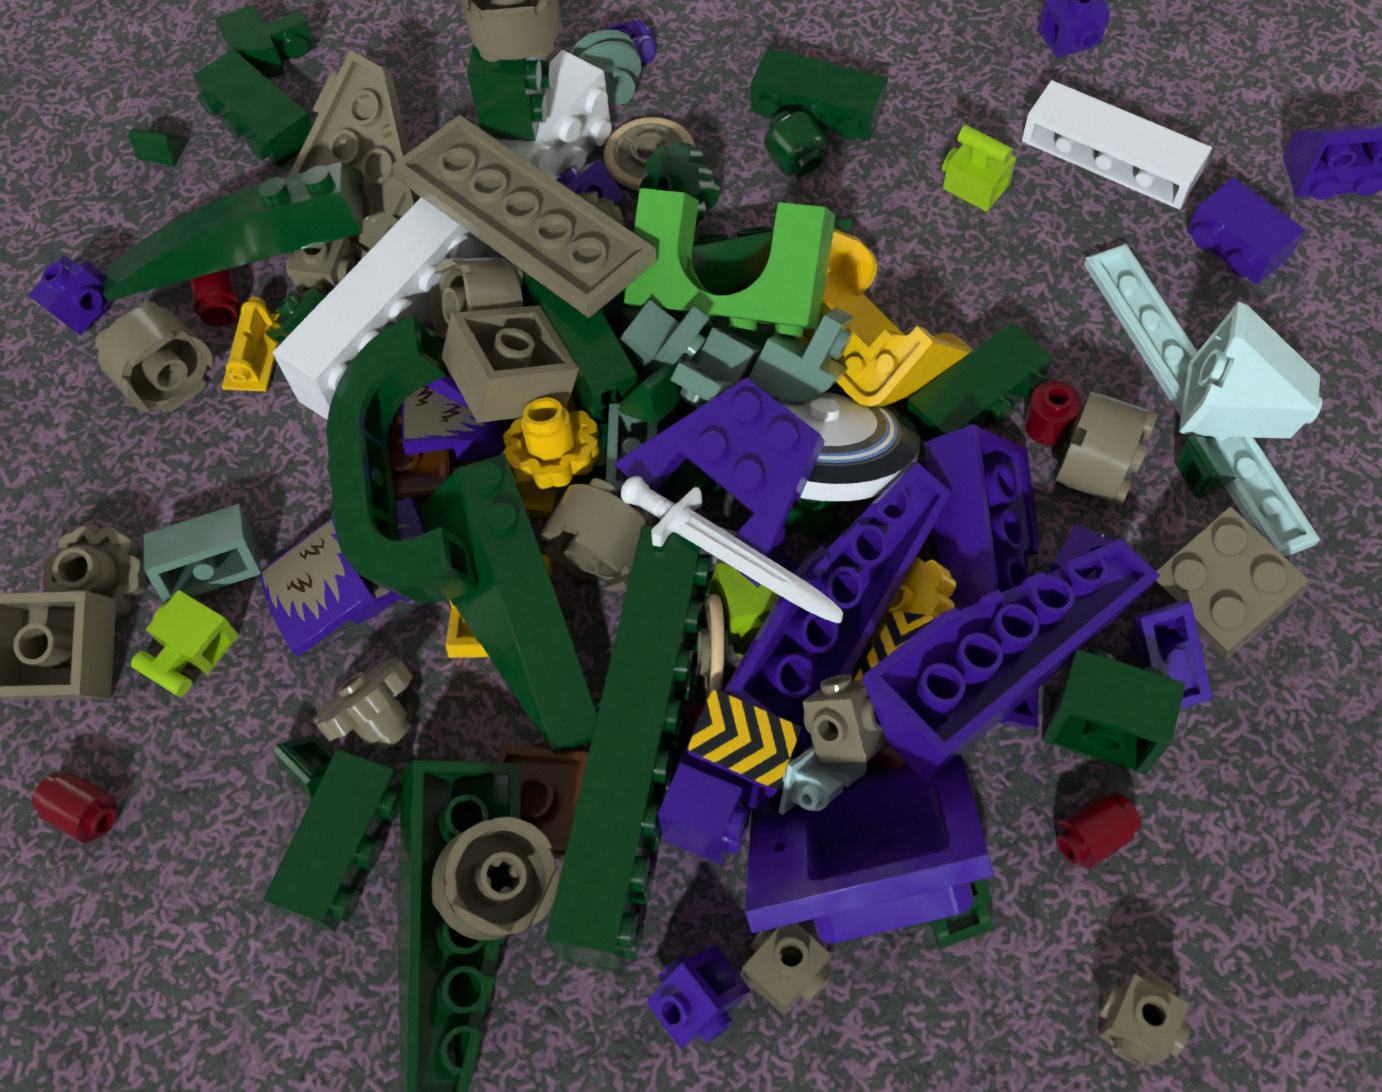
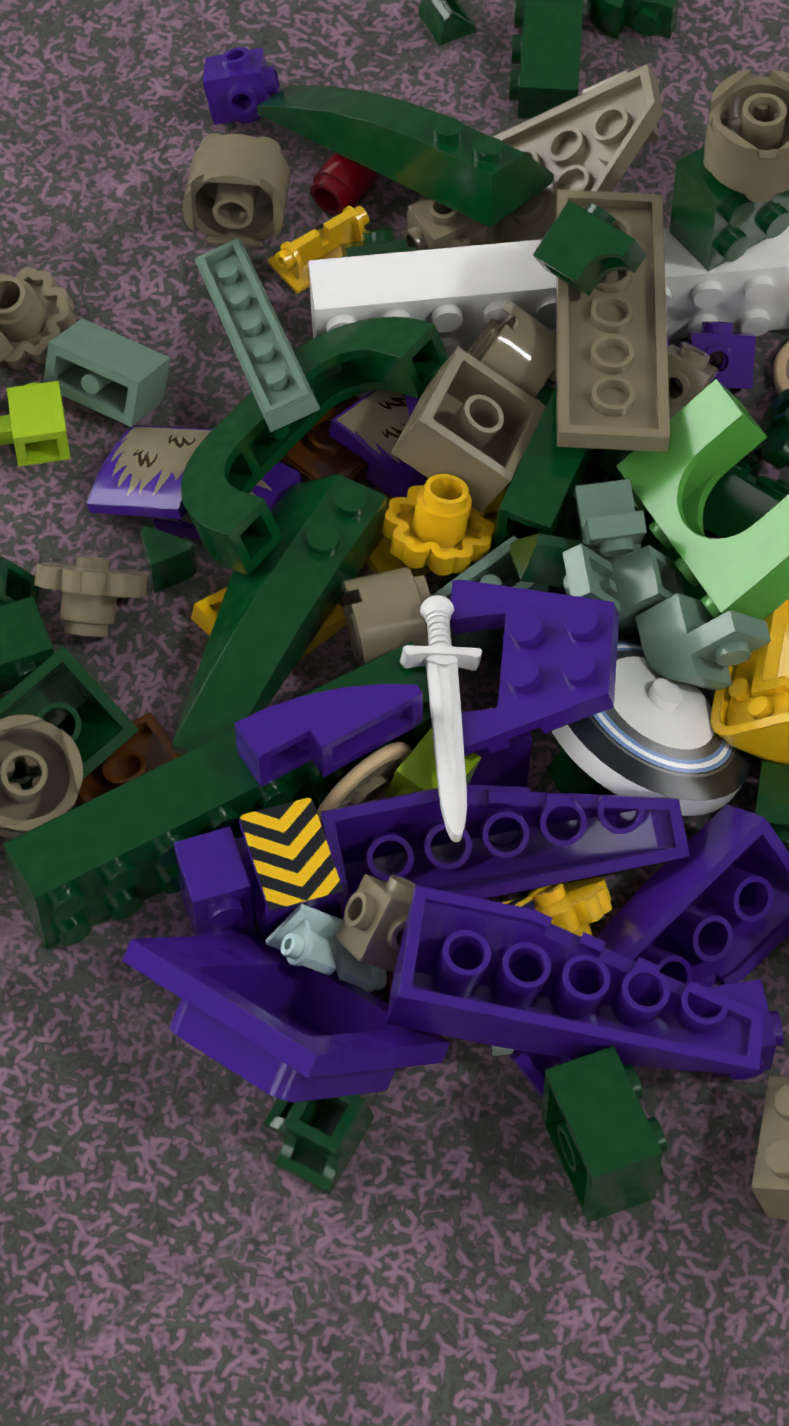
camera: 45 degrees right, 5 degrees down
(288, 434) = (256, 335): none -> sand green tile
(389, 634) = (167, 558): none -> dark green slope
(469, 172) = (586, 247): none -> dark green brick
(668, 636) = (326, 728): none -> dark purple slope
(688, 1003) = (68, 1004): dark purple brick -> none
(785, 984) = (148, 1054): dark tan brick -> none
(1097, 829) = (490, 1209): dark red brick -> none
(1130, 1033) = (346, 1371): dark tan brick -> none
(1171, 642) = (711, 1153): dark purple slope -> none

